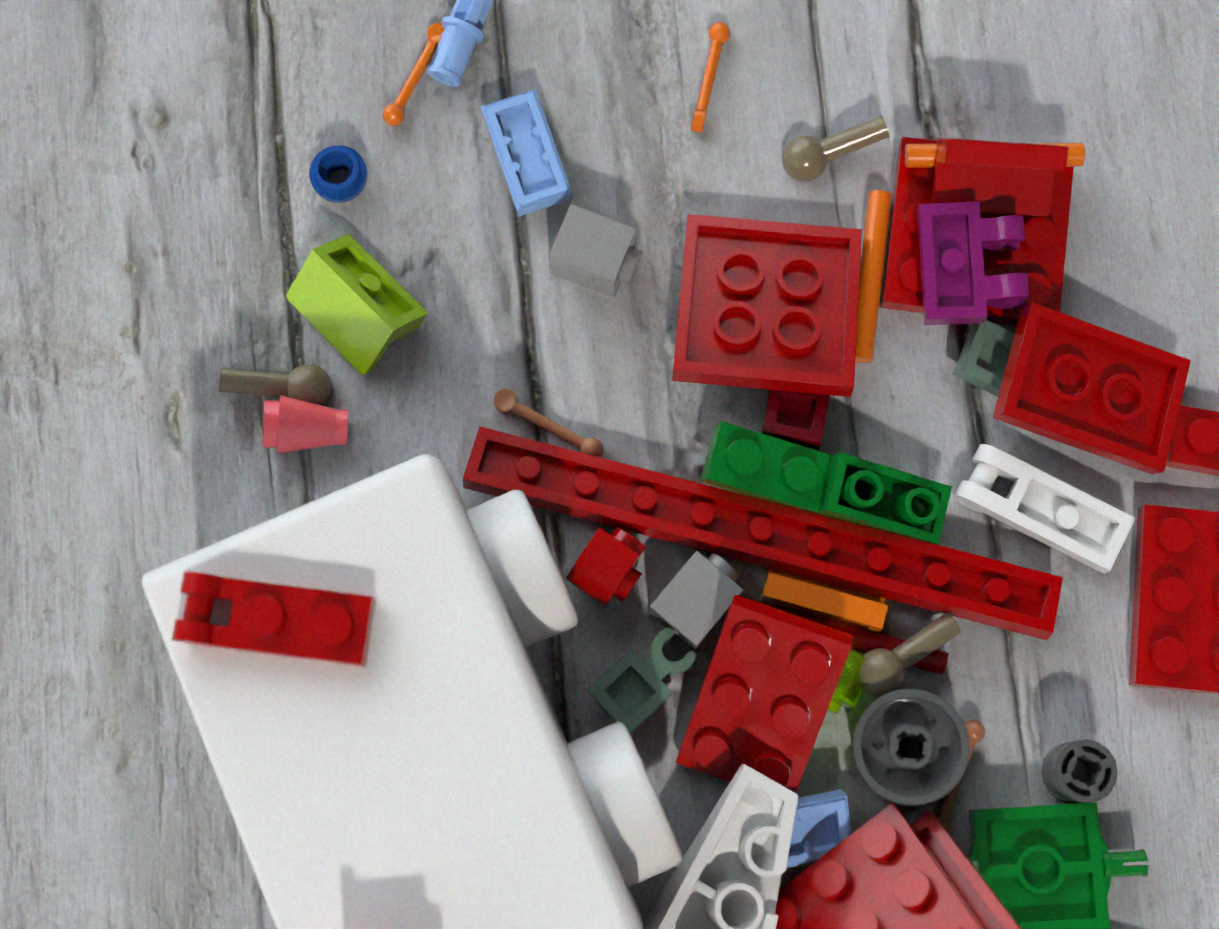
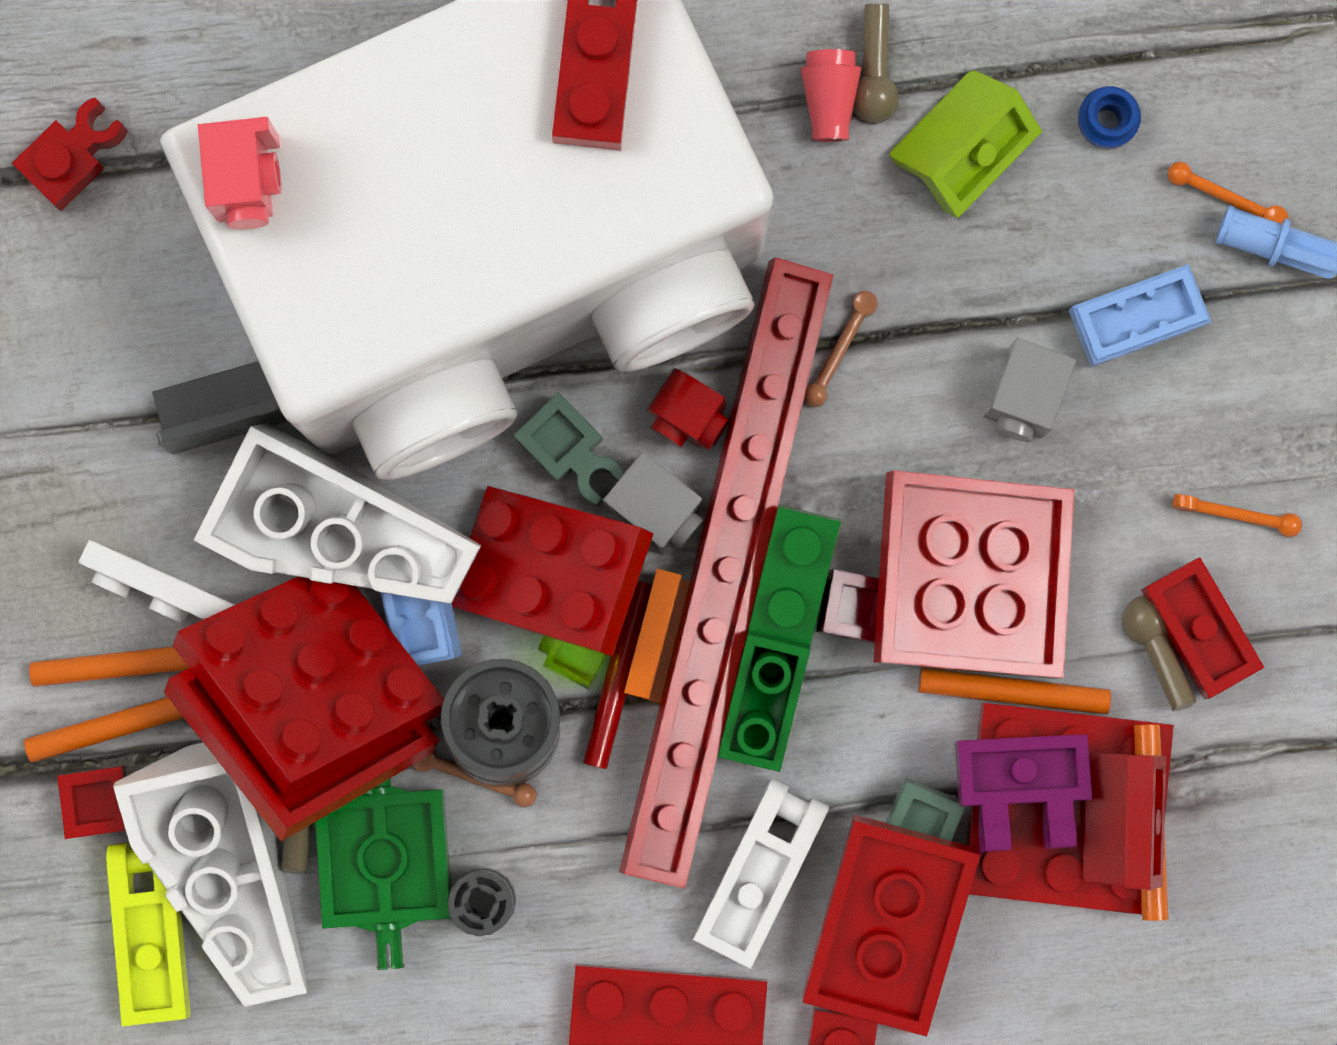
camera: 85 degrees right, 5 degrees up
(815, 108) = (1203, 628): none -> red plate
(885, 669) = (583, 698): dark tan bar -> none

